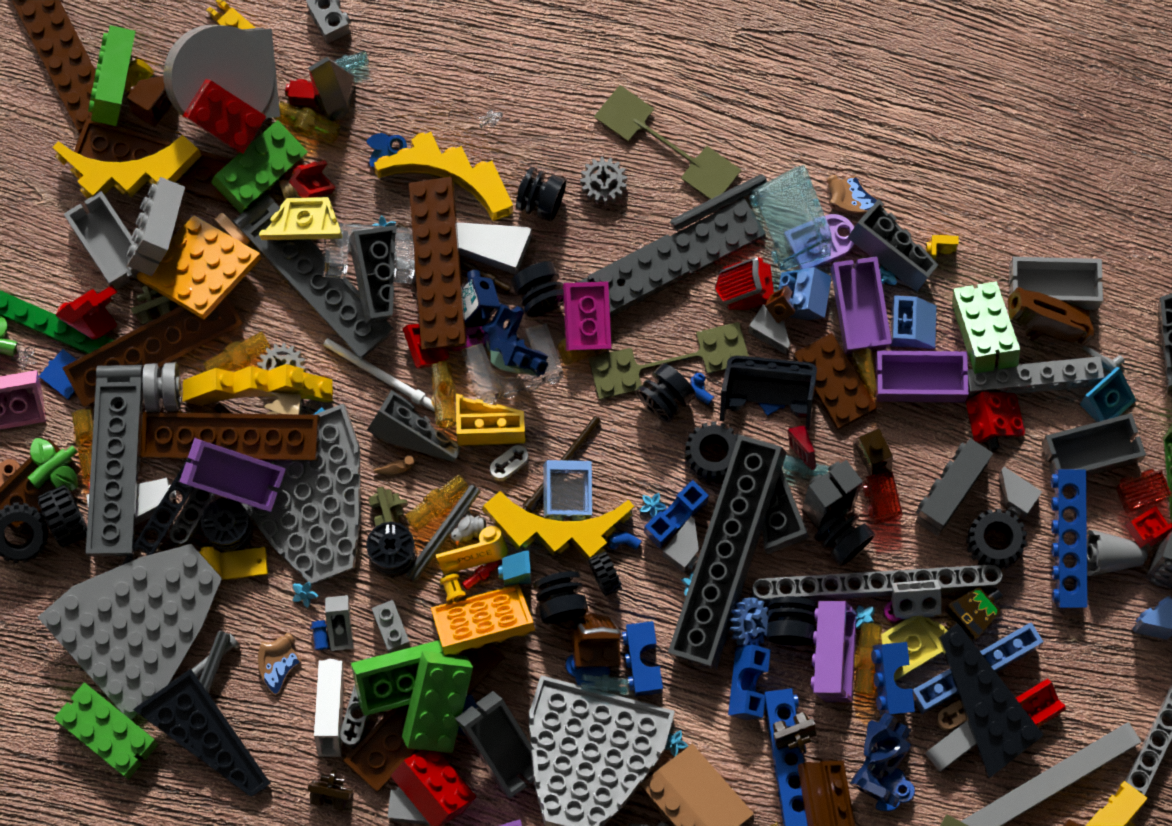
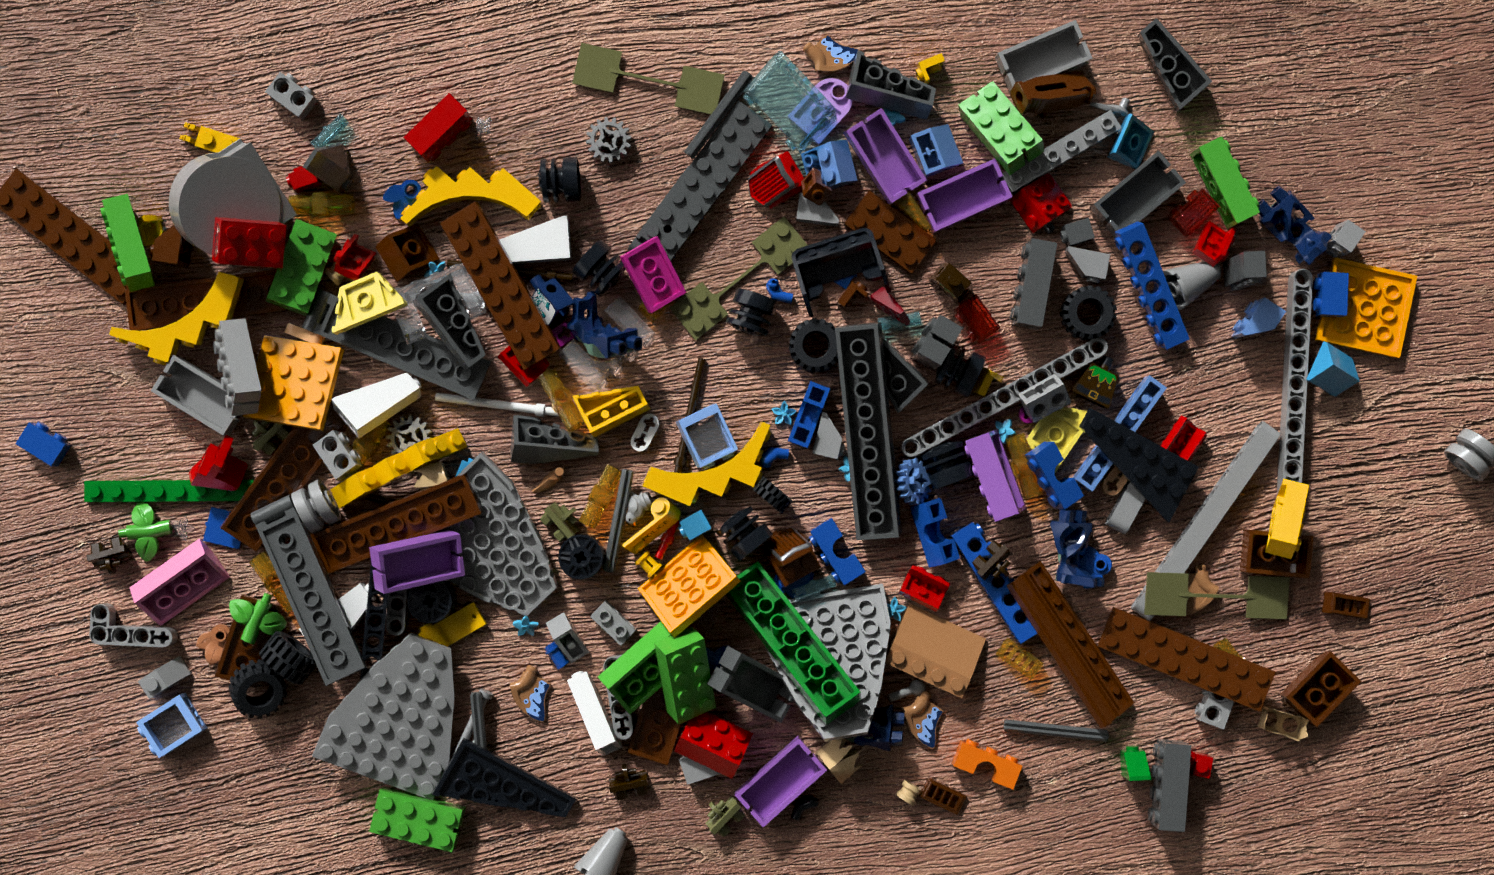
camera: 25 degrees left, 15 degrees up
(202, 349) = (334, 459): none -> light grey brick
(266, 318) = (376, 403): none -> white slope
(364, 198) = (406, 252): none -> reddish brown slope
(449, 99) = (439, 128): none -> red brick
(558, 719) = (793, 644): none -> green brick
(714, 733) = (924, 588): none -> red bracket
(767, 420) = (848, 296): none -> reddish brown bracket
(864, 557) = (984, 381): none -> yellow tile
(1018, 459) = (1077, 232): none -> dark grey brick

